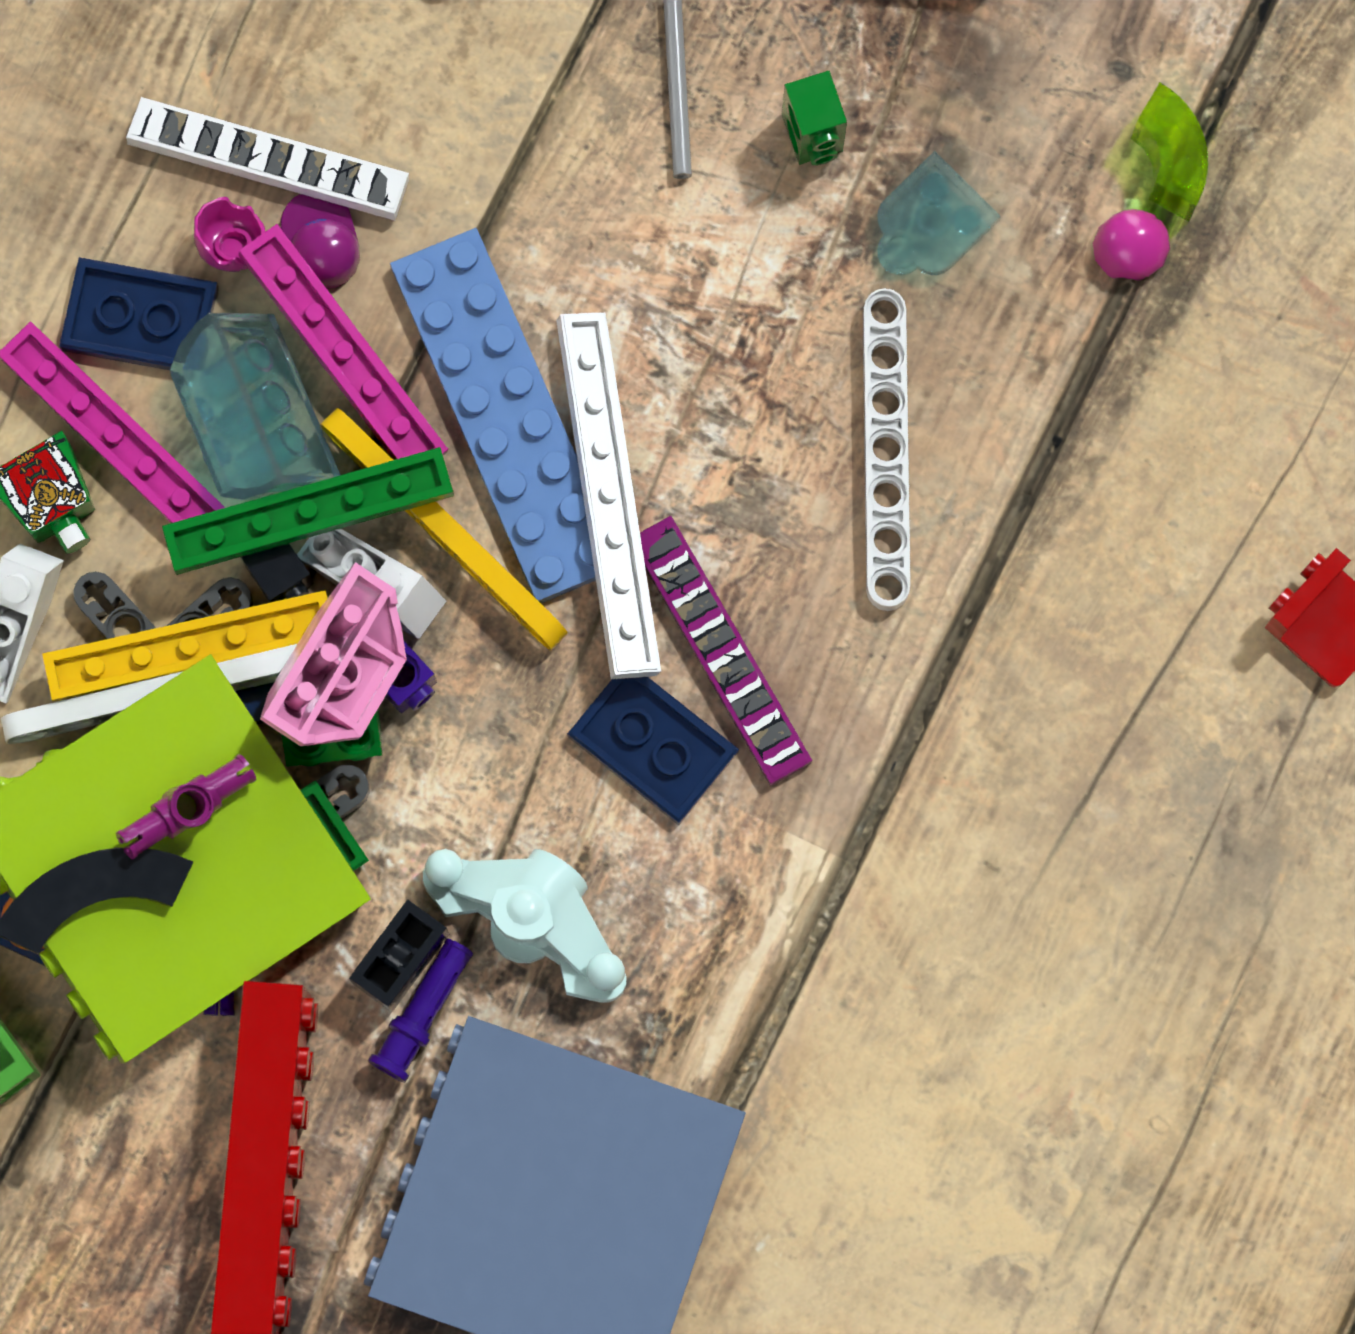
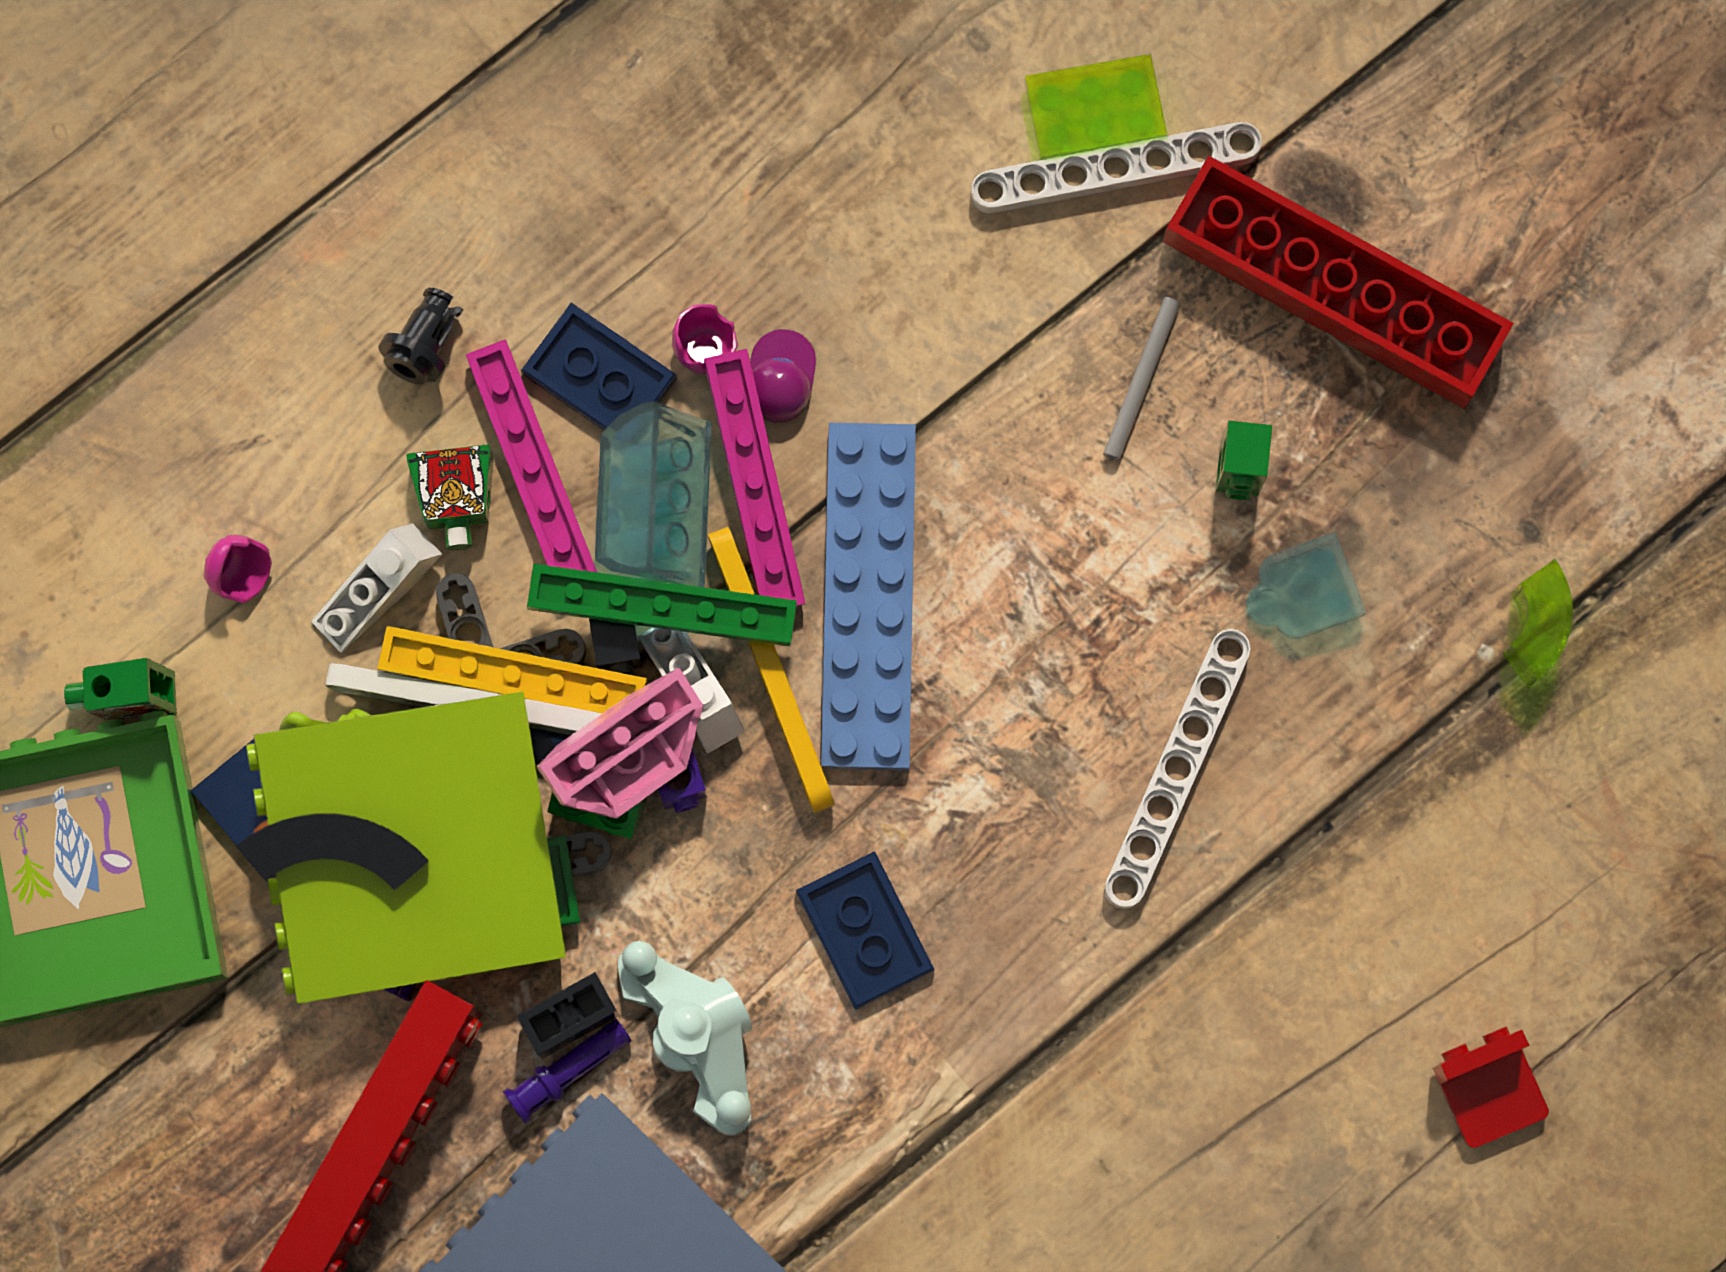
camera: 25 degrees right, 0 degrees up
(164, 817) = (420, 813): magenta pin -> none
(267, 158) = (767, 288): tile -> none
(608, 496) = (921, 704): white tile -> none
(722, 652) = (958, 878): tile -> none
(1131, 245) = (1469, 687): dark pink hair -> none

